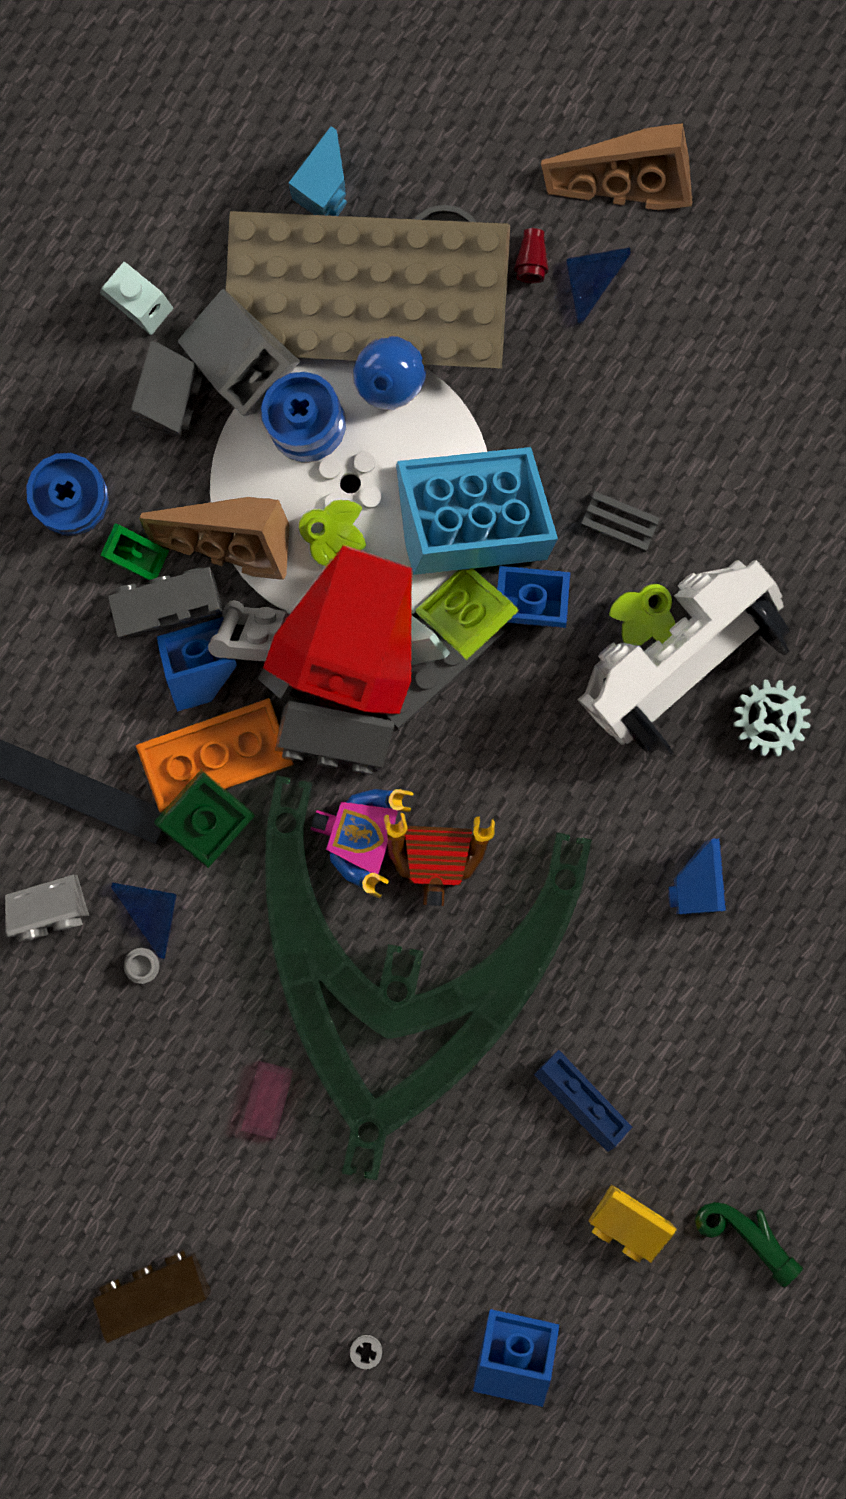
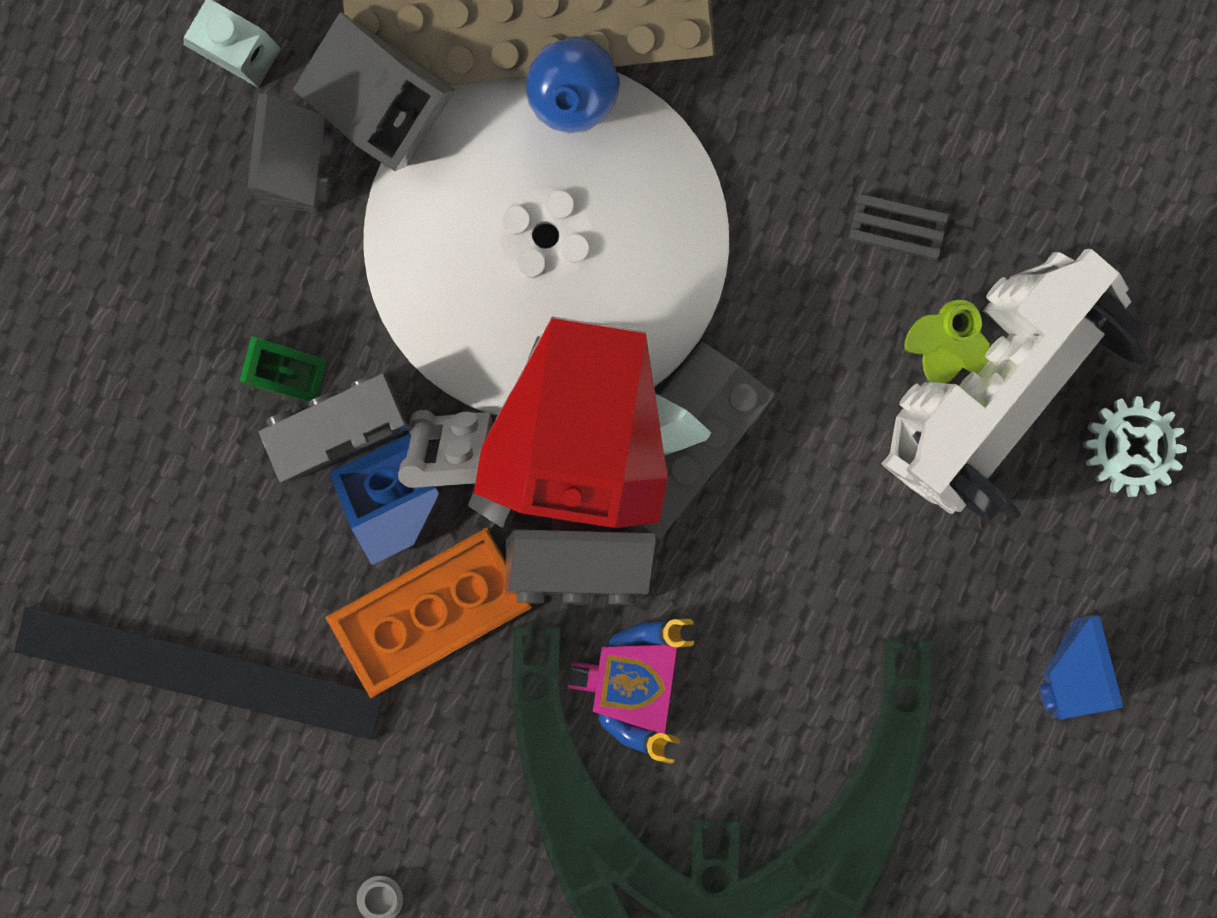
camera: 10 degrees left, 0 degrees up
(44, 906) = (248, 843): light grey slope -> none
(55, 477) = (157, 304): blue wheel -> none
(150, 911) = (380, 827): clear blue tile -> none
(204, 818) = (429, 697): dark green tile -> none
(237, 531) = (410, 320): medium nougat wedge -> none
(303, 416) = (472, 159): blue wheel -> none
(336, 531) = (539, 299): lime plate -> none
(436, 854) = (736, 694): torso -> none
(466, 611) = (723, 375): lime tile -> none
(474, 511) = (710, 244): dark azure slope -> none
(537, 595) = (804, 343): blue slope -> none

